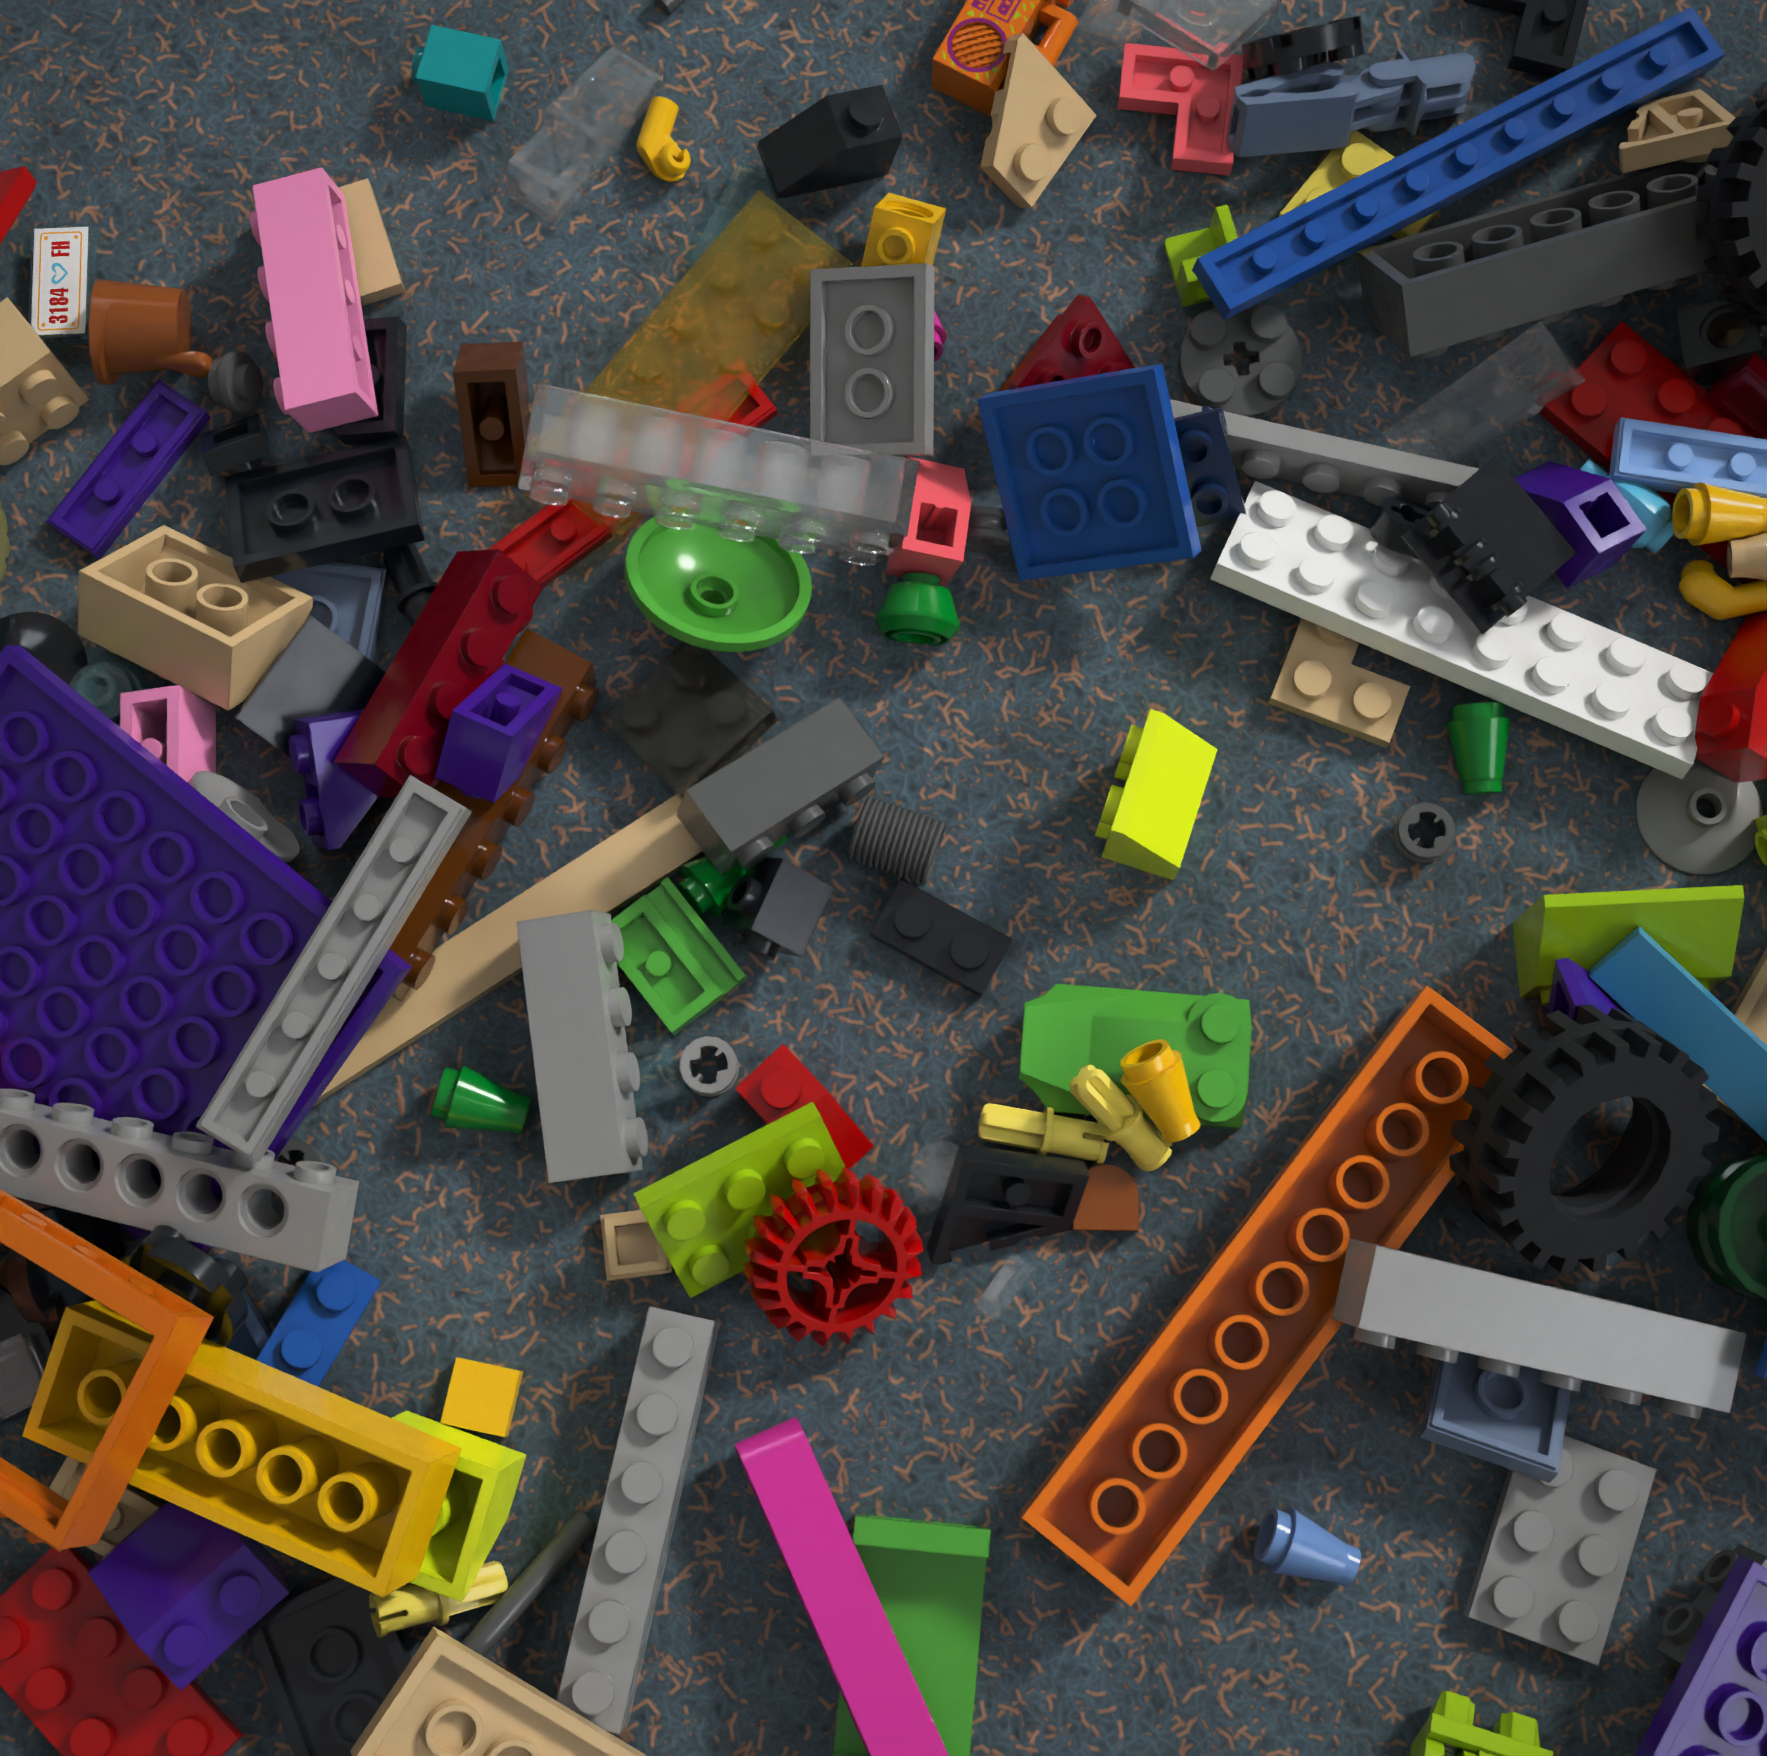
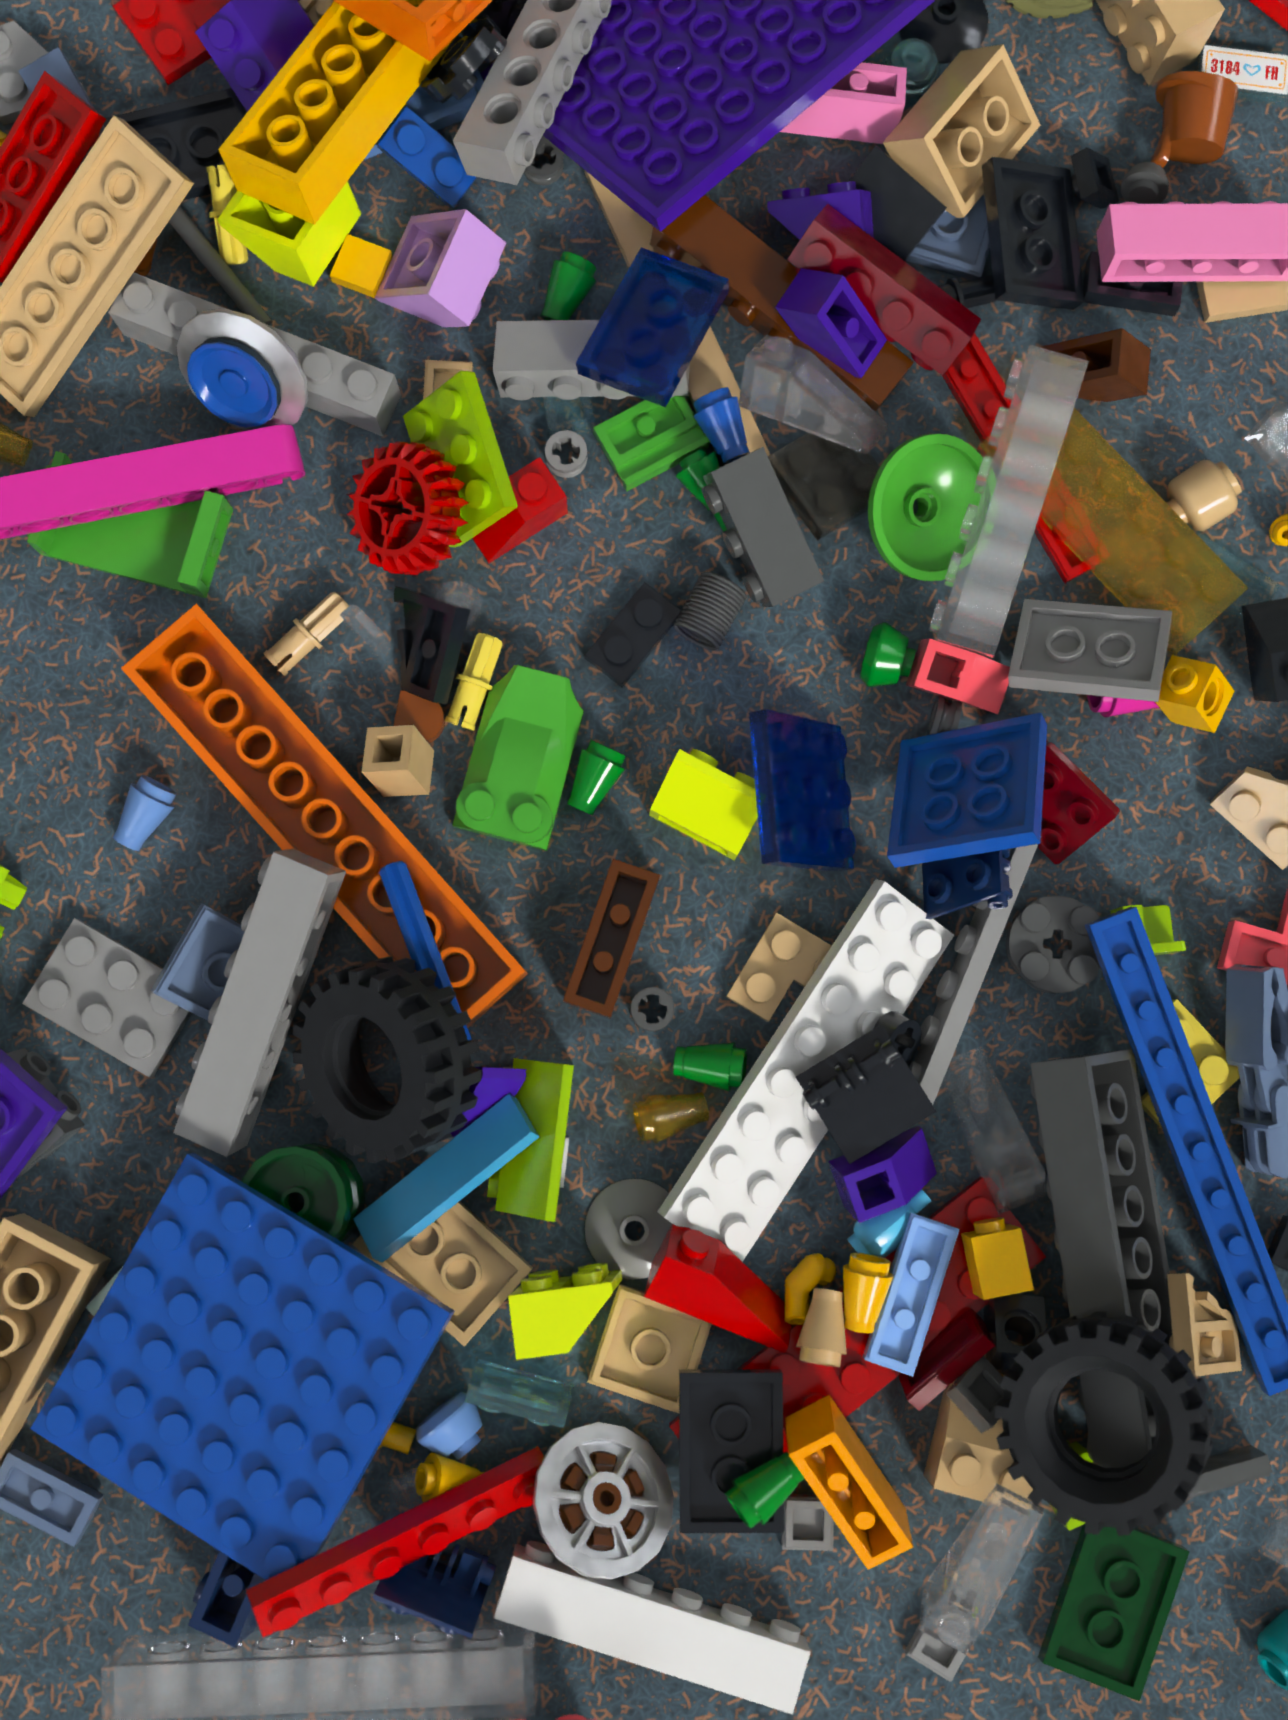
camera: 90 degrees right, 5 degrees up
(128, 469) = (1088, 105): dark purple tile -> none
(247, 812) = (802, 147): light grey dish -> none
(333, 969) = (666, 172): light grey tile -> none
(474, 1281) = (442, 268): none -> lavender slope
(542, 959) = (653, 327): none -> clear blue plate
(591, 757) = (804, 393): none -> clear slope
(641, 259) = (1204, 494): none -> tan head
(644, 861) = (722, 424): none -> blue cone
(680, 1521) = (241, 370): none -> piece
(776, 908) = (671, 512): black brick -> none
(1018, 1370) = (307, 633): none -> tan axle
(1120, 1118) = (471, 733): light yellow axle -> none
(1127, 677) = (801, 792): none -> clear blue plate
(1138, 952) = (595, 775): none -> green cone
(1160, 1086) = (486, 760): yellow cone -> none
(1176, 1208) = (398, 760): none -> tan brick
(1356, 891) = (611, 938): none -> reddish brown brick
(1403, 1133) = (414, 925): none -> blue axle
(1554, 791) = (666, 1115): none -> clear yellow cone
(1650, 367) = (996, 1259): none -> yellow brick

